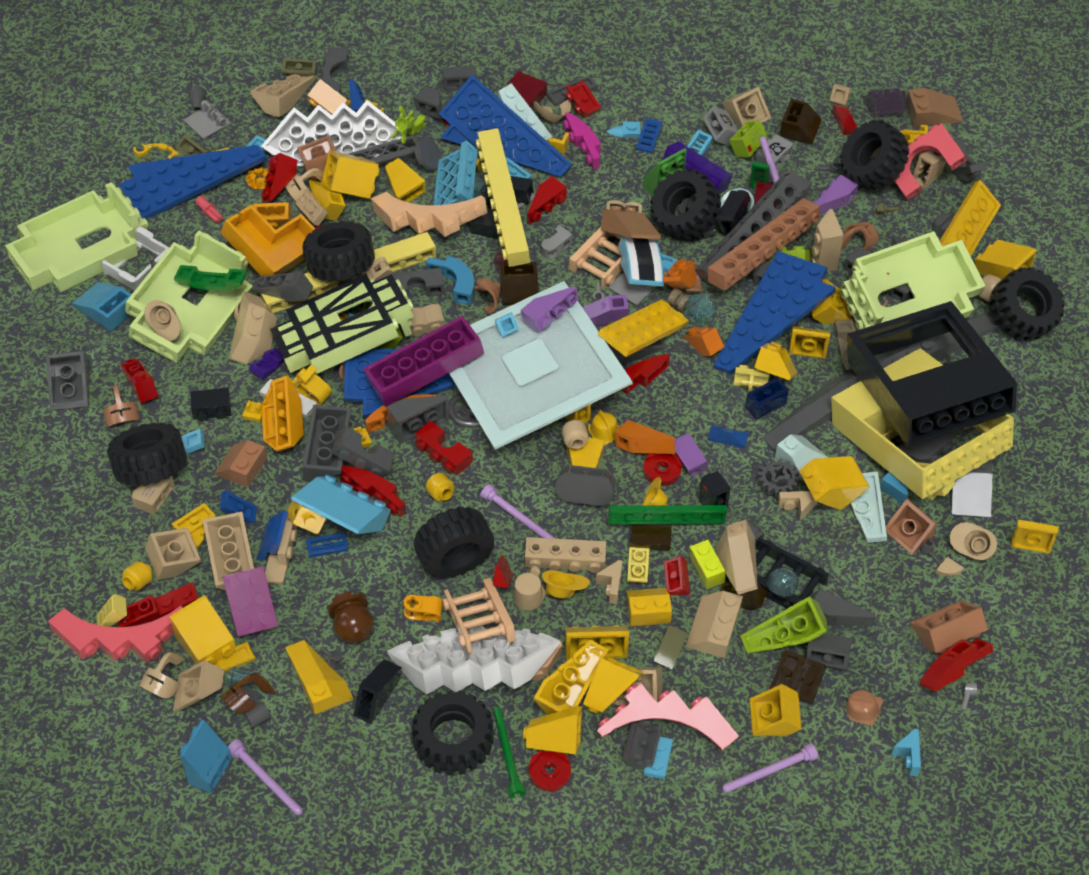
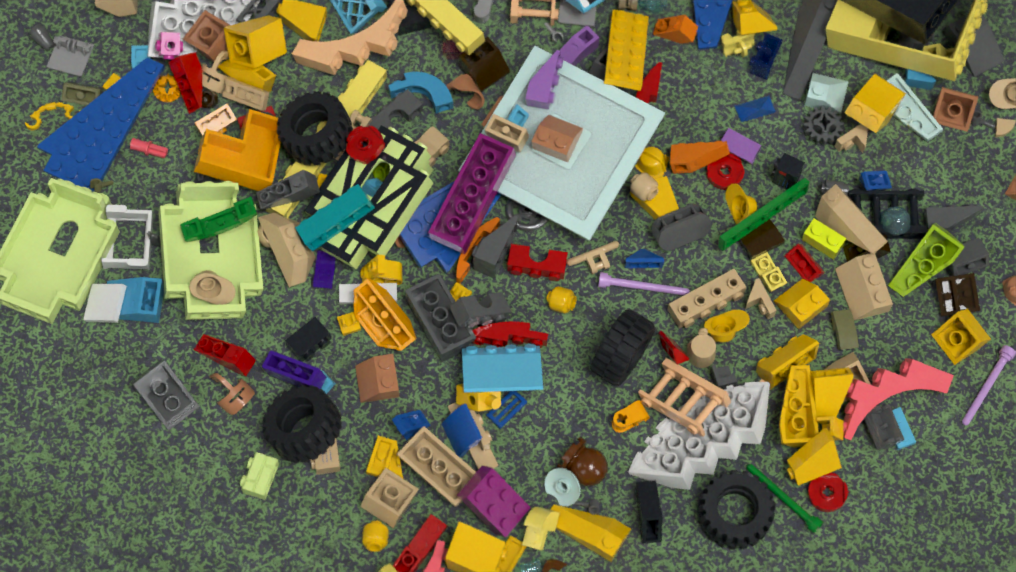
camera: 35 degrees left, 15 degrees up
(81, 293) = (104, 303): none -> white tile
(87, 479) = (260, 475): none -> yellowish green brick
(146, 213) = (97, 184): none -> olive hand
(176, 415) = (292, 370): none -> dark purple brick
(274, 640) = (538, 523): none -> light yellow brick
(280, 142) = (174, 41): none -> brick
(283, 197) = (209, 99): none -> dark brown tile
(299, 320) = (335, 217): none -> teal brick
(320, 626) = (555, 486): none -> light aqua dish
(366, 280) = (371, 151): none -> red plate
(486, 329) = (507, 132): none -> tan brick
(496, 469) = (590, 255): none -> tan piece
(525, 354) = (556, 138): none -> nougat slope
(529, 622) = (722, 376): none -> dark grey panel
(535, 496) = (644, 259): none -> blue slope
(592, 714) = (834, 426): none -> yellow panel
(791, 543) = (875, 180): none -> blue slope

